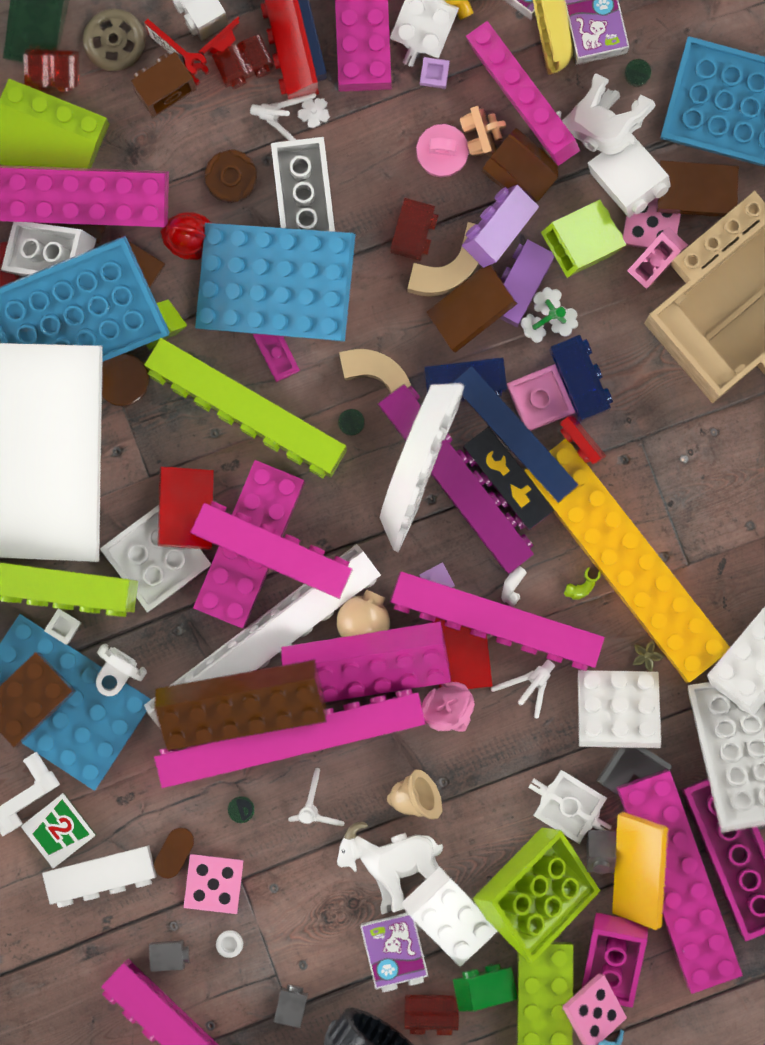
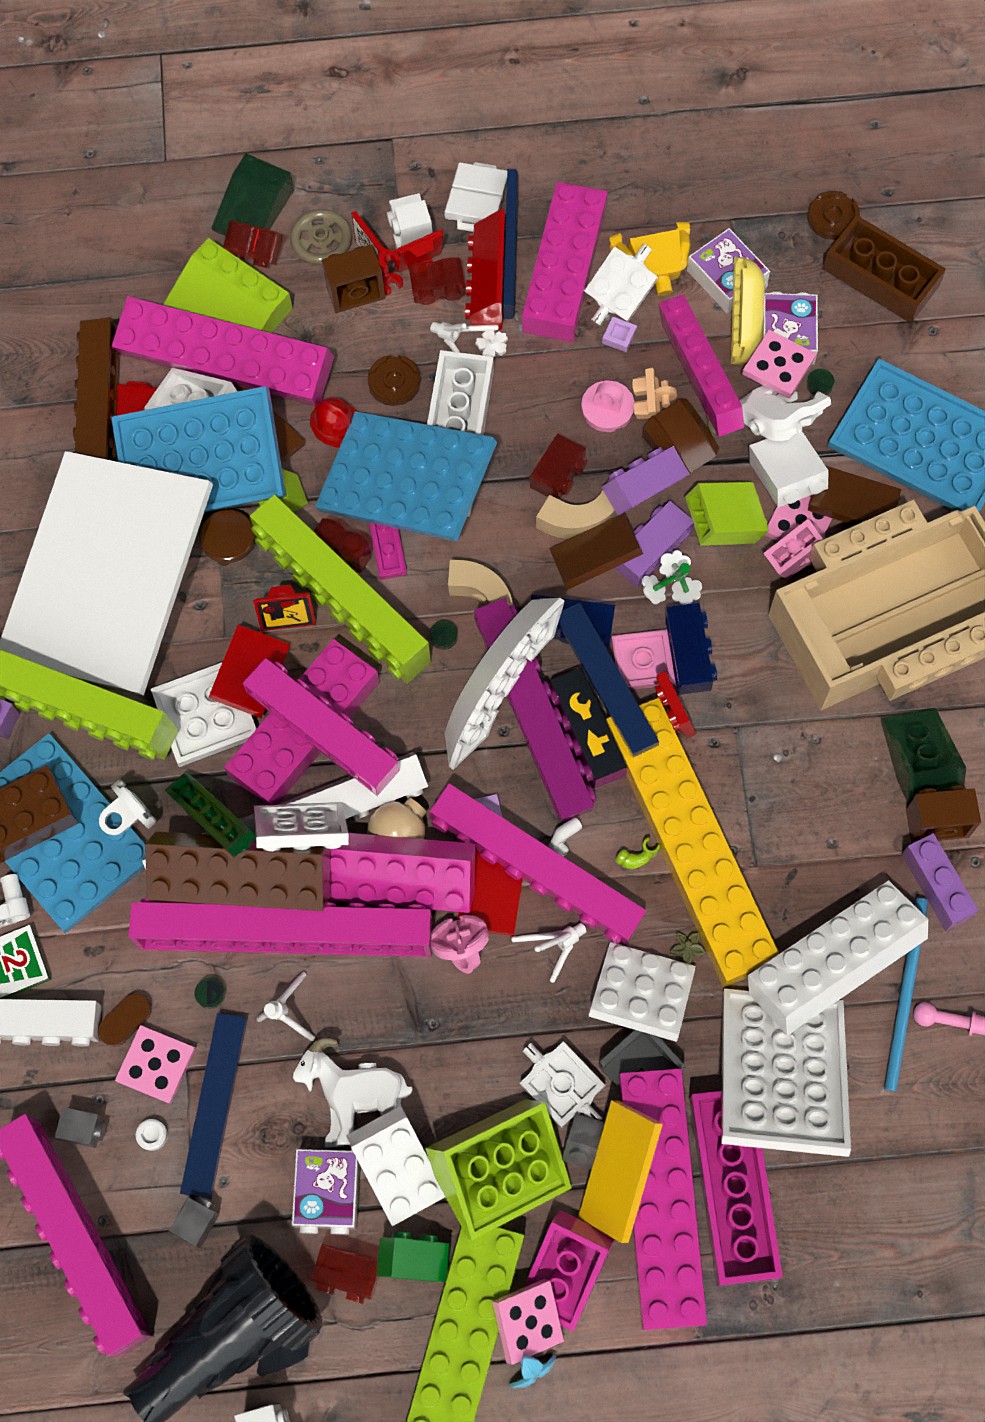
camera: 15 degrees right, 15 degrees down
(62, 626) = (87, 756): white plate -> none
(199, 660) = (211, 814): none -> dark green plate
(200, 440) = (284, 609): none -> piece
(240, 363) = (346, 544): none -> clear red brick
(275, 904) = (214, 1106): none -> dark blue tile
(283, 650) = (300, 826): none -> white plate
(416, 796) = (399, 1026): tan piece -> none
(596, 72) = (779, 364): none -> bright pink tile

